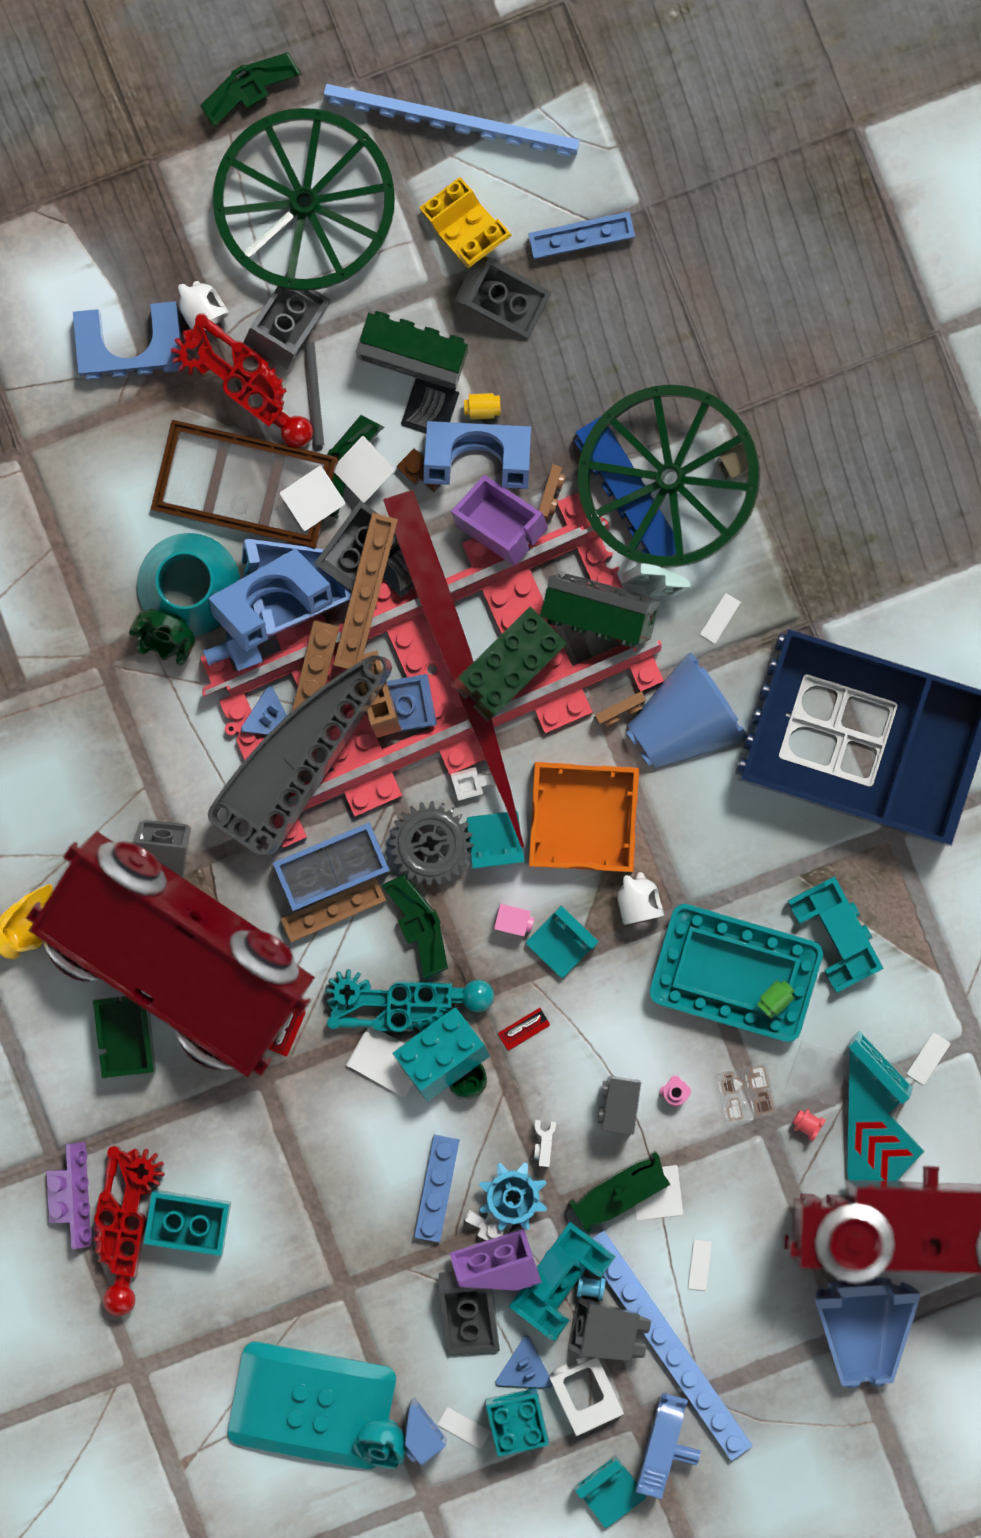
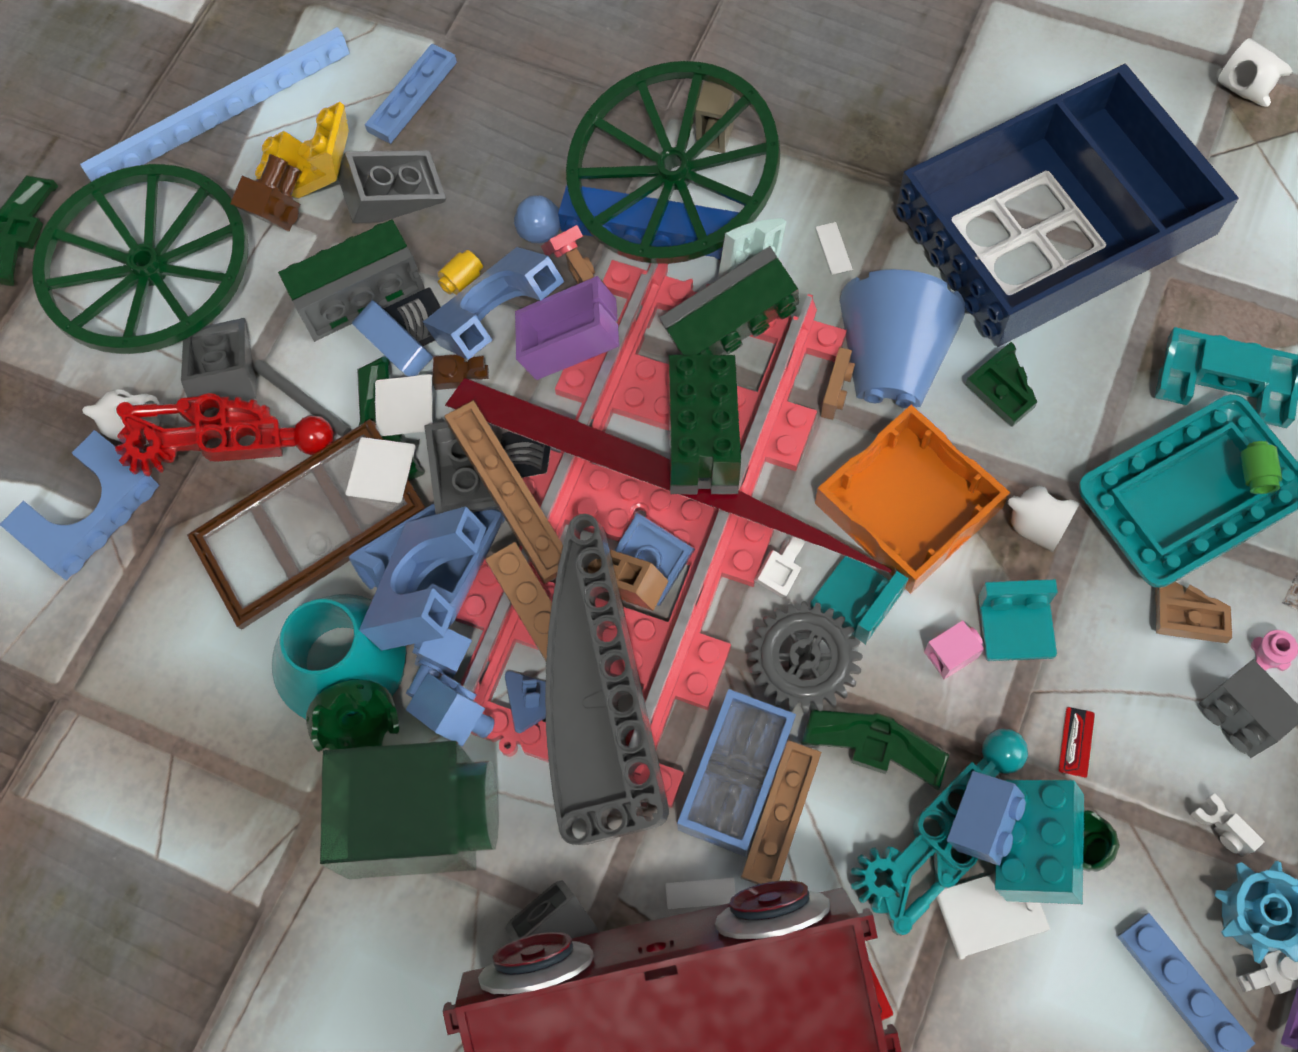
camera: 40 degrees left, 20 degrees down
(146, 719) = (406, 810): none -> clear green container
(214, 686) = (449, 709): none -> medium blue brick
(254, 904) = (700, 893): none -> white sticker
(400, 412) = (392, 339): none -> medium blue beam
(417, 239) = (271, 194): none -> reddish brown brick
(423, 1017) = (987, 818): none -> medium blue brick
(558, 453) = (563, 242): none -> coral plate
(567, 413) = (537, 219): none -> medium blue piece
(656, 1030) = (1192, 614): none -> medium nougat wing
(711, 807) = (1004, 386): none -> dark green wing

